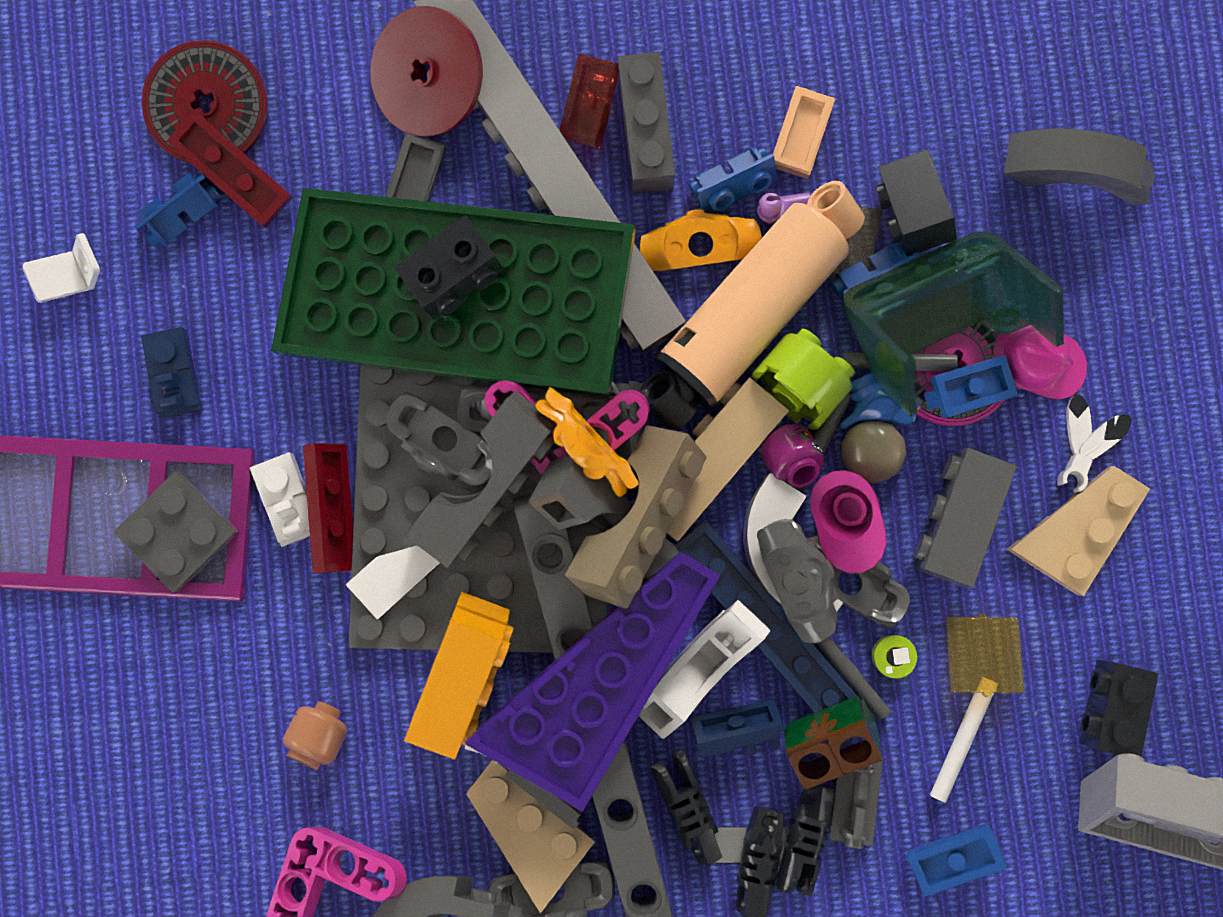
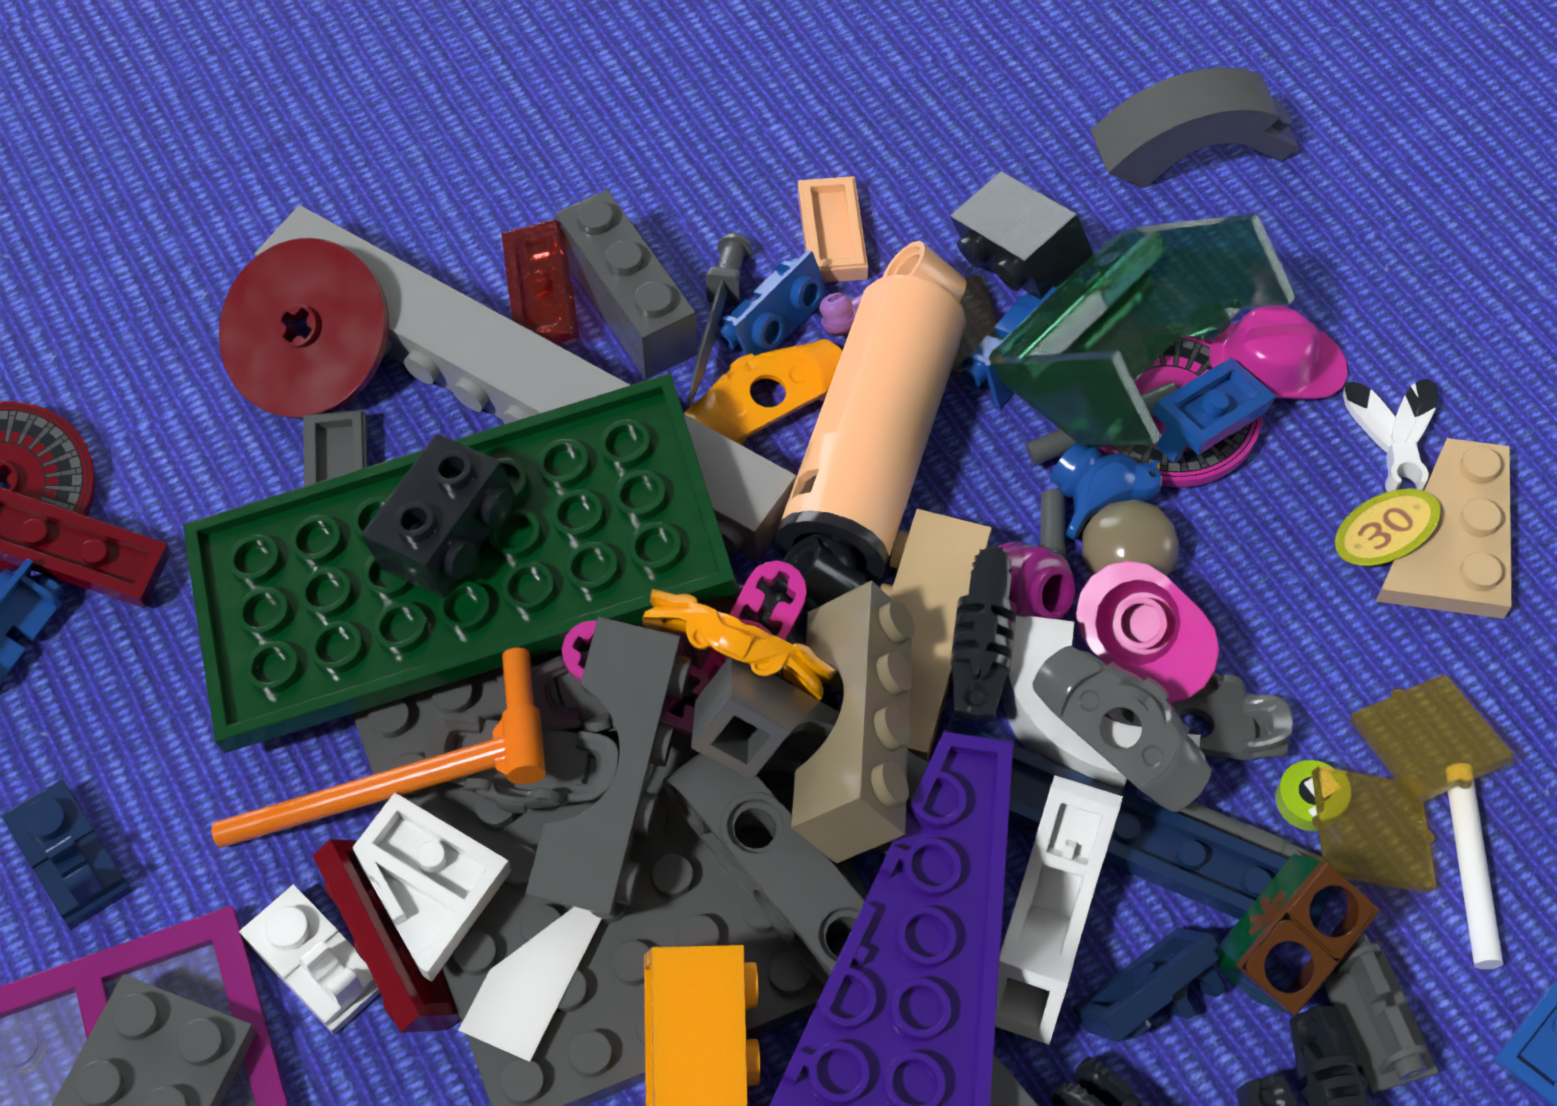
camera: 25 degrees left, 25 degrees down
(359, 491) = (428, 879): none -> white wing
(433, 443) = (513, 751): none -> orange bar
(709, 148) = (722, 289): none -> dark grey sword
(744, 487) = (983, 637): none -> black hinge
(805, 378) = (993, 477): lime brick -> none
(915, 695) = (1372, 830): none -> clear yellow piece
(964, 517) = (1297, 575): dark grey brick -> none
(1040, 508) = (1387, 527): none -> clear yellow sticker

